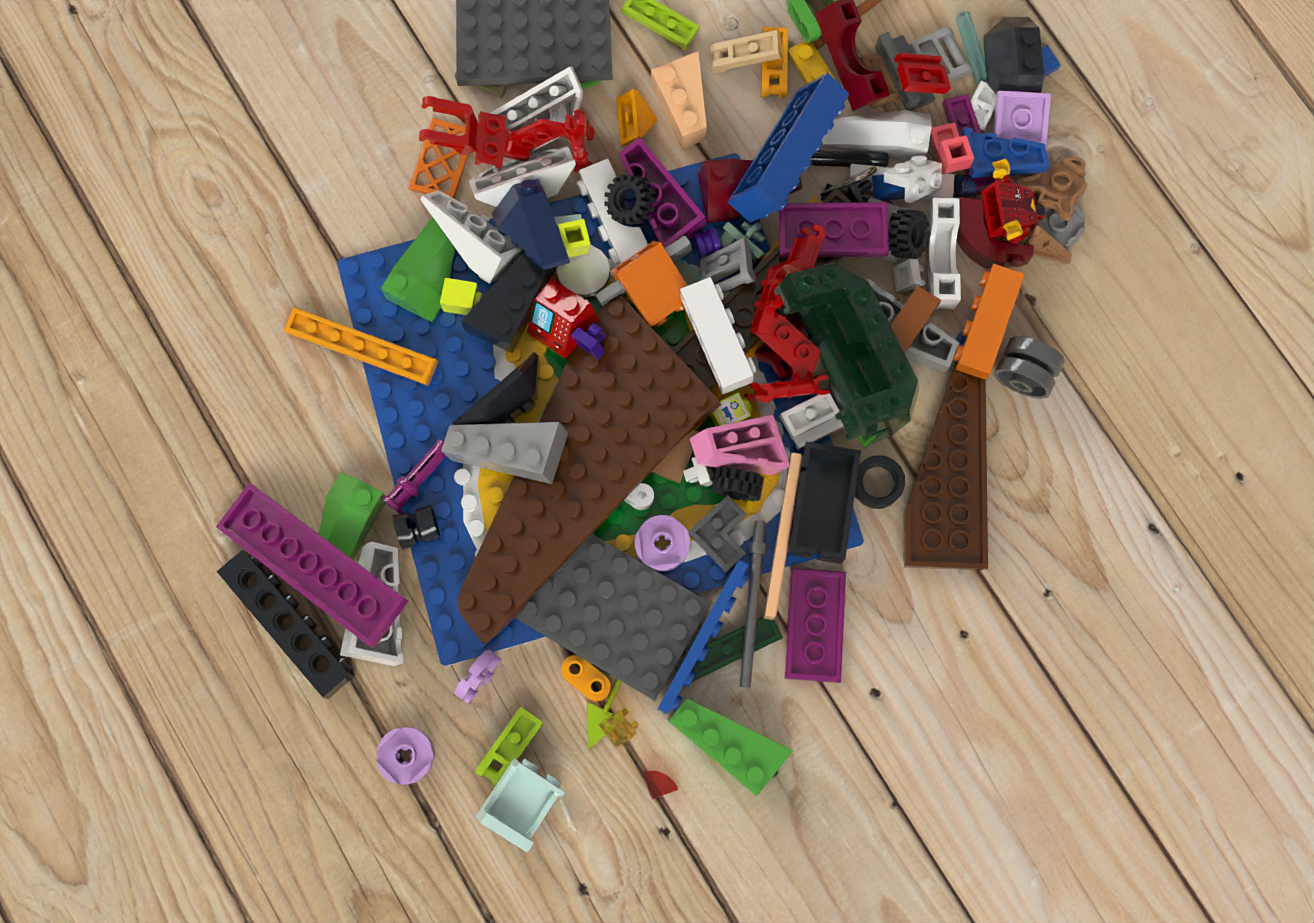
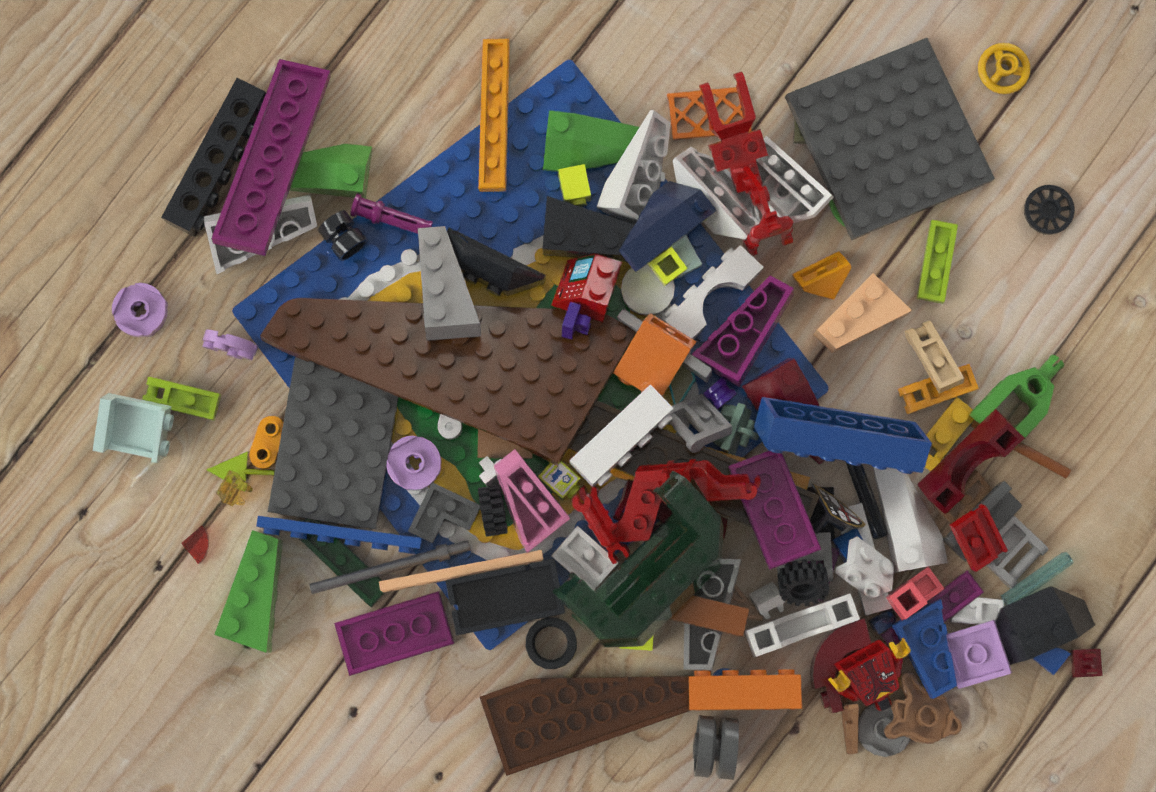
camera: 70 degrees right, 5 degrees up
(617, 196) = (720, 293): black tyre -> none
(1059, 36) = (1086, 663): none -> dark red tile

